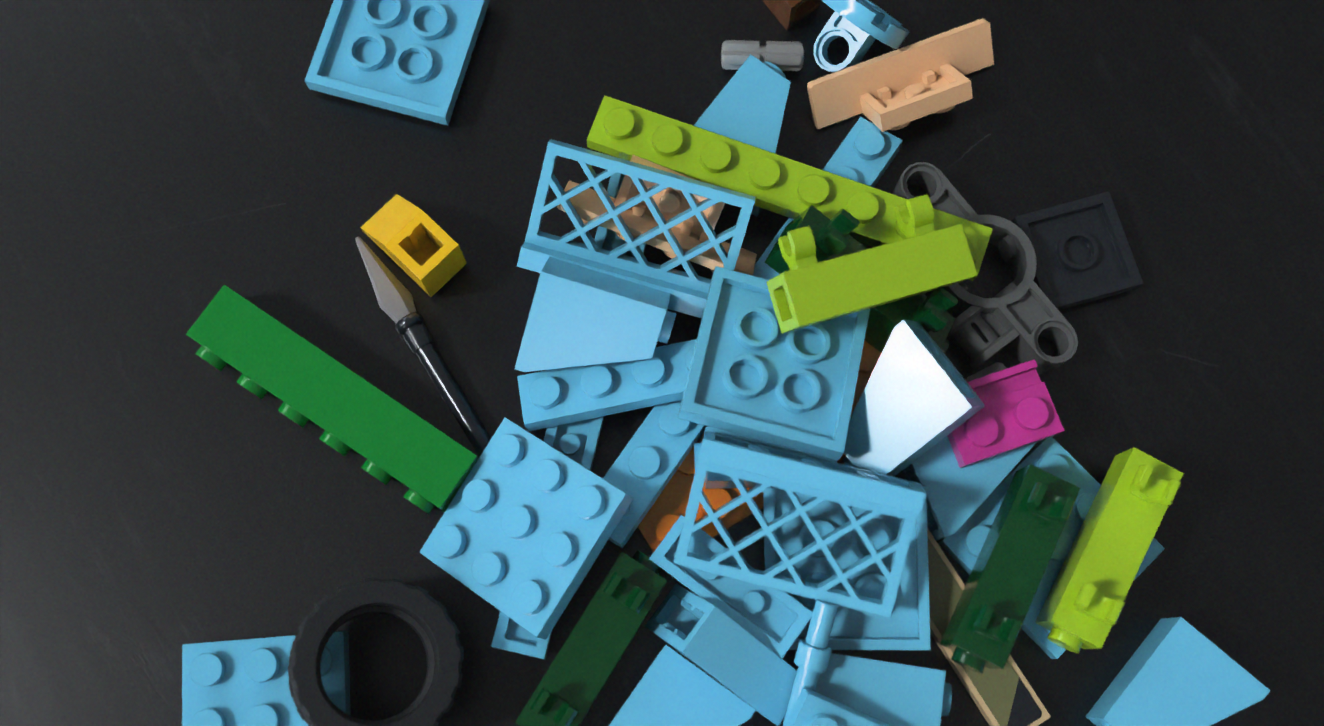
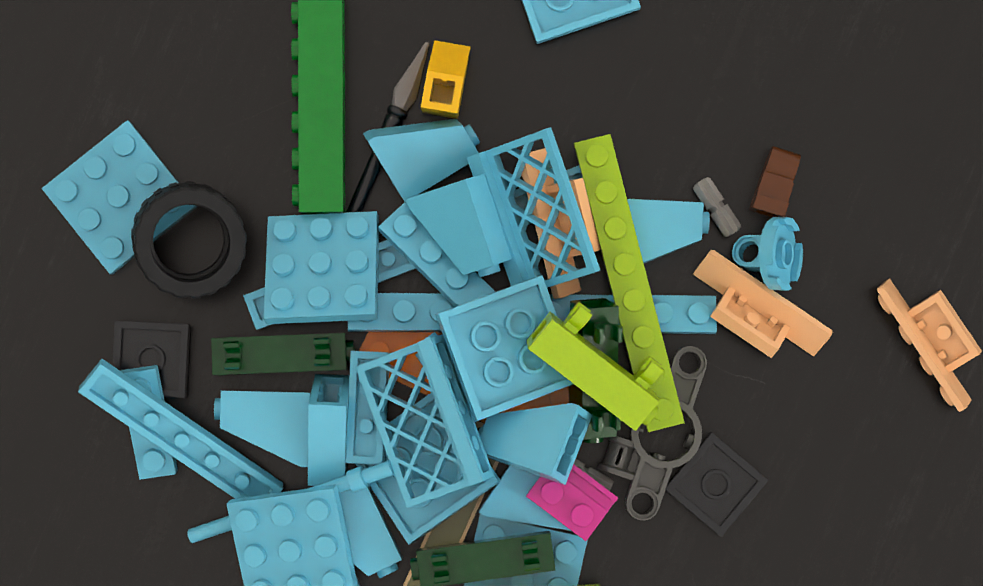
camera: 55 degrees right, 10 degrees up
(477, 323) = (422, 152): none -> medium azure slope

